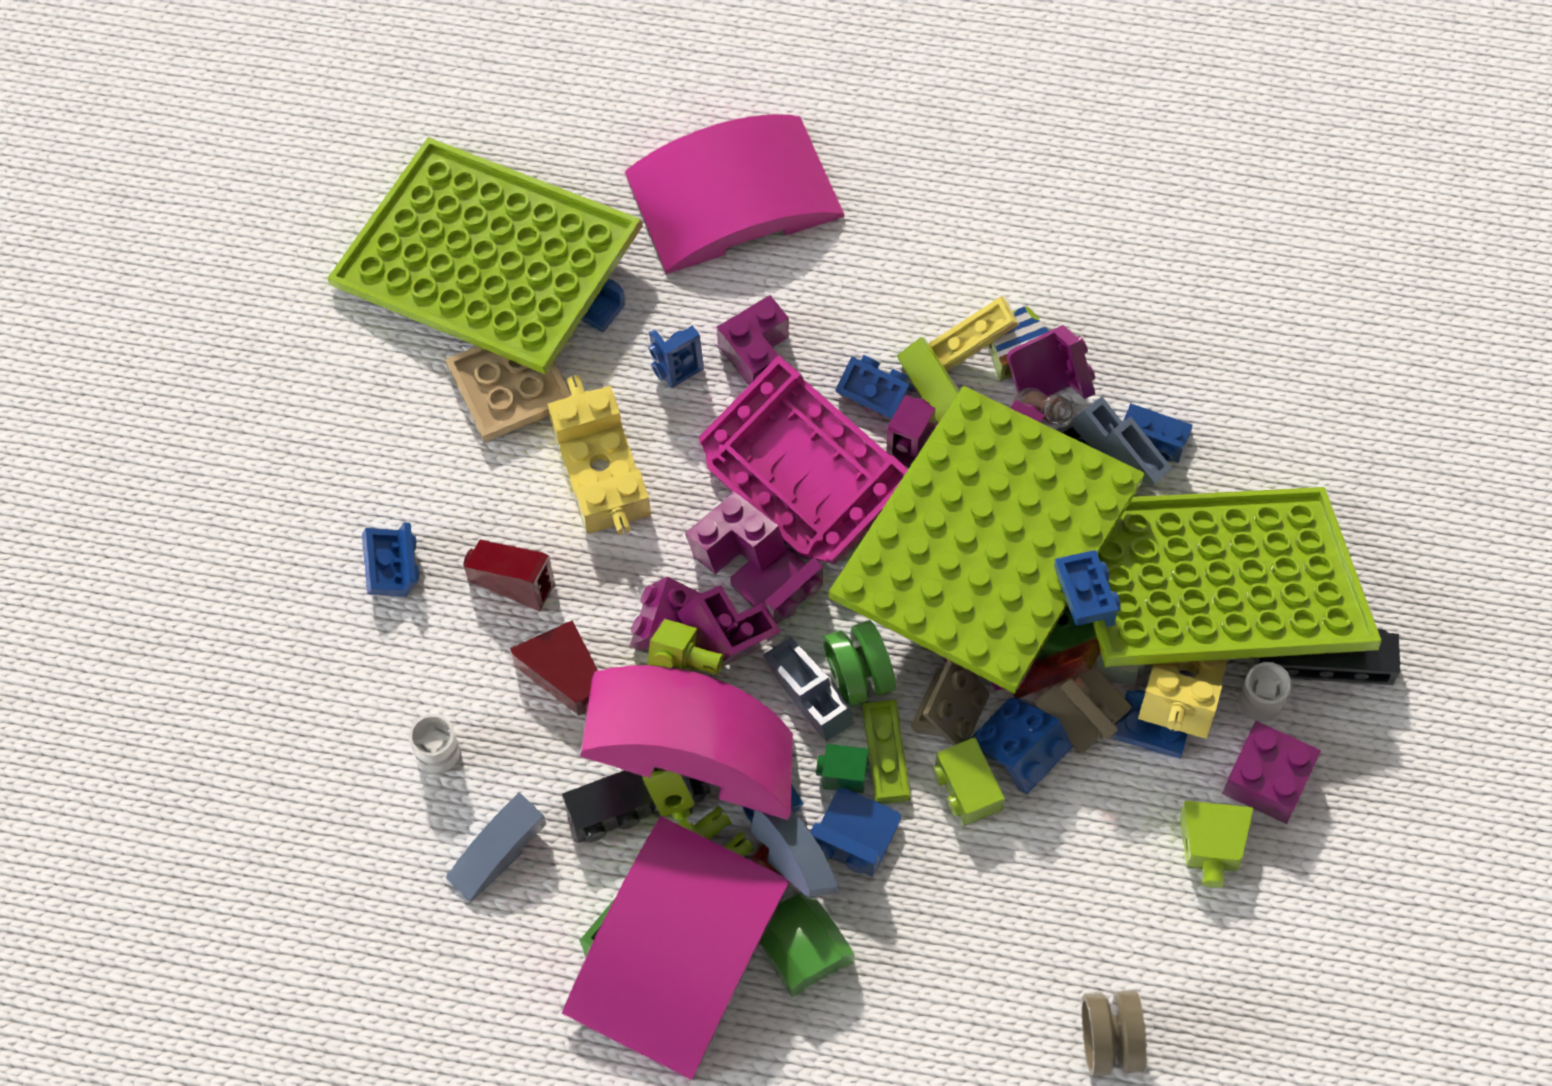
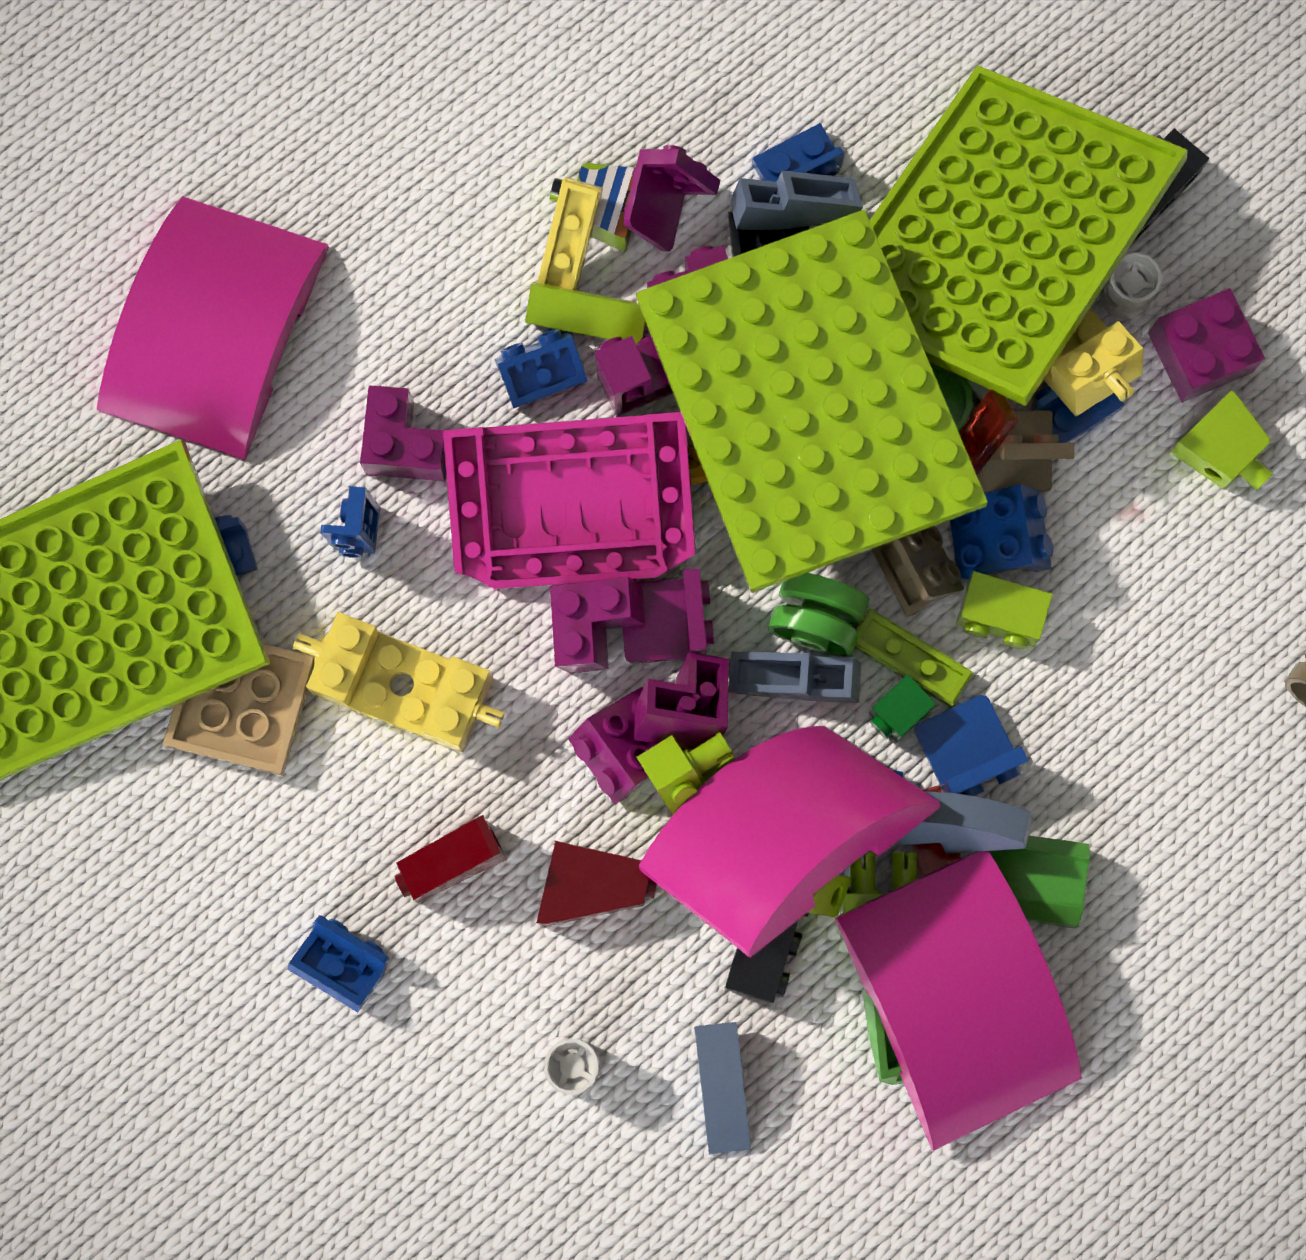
camera: 50 degrees left, 15 degrees up
(1057, 408) = (715, 230): clear piece -> none
(1087, 588) = (949, 358): blue bracket -> none

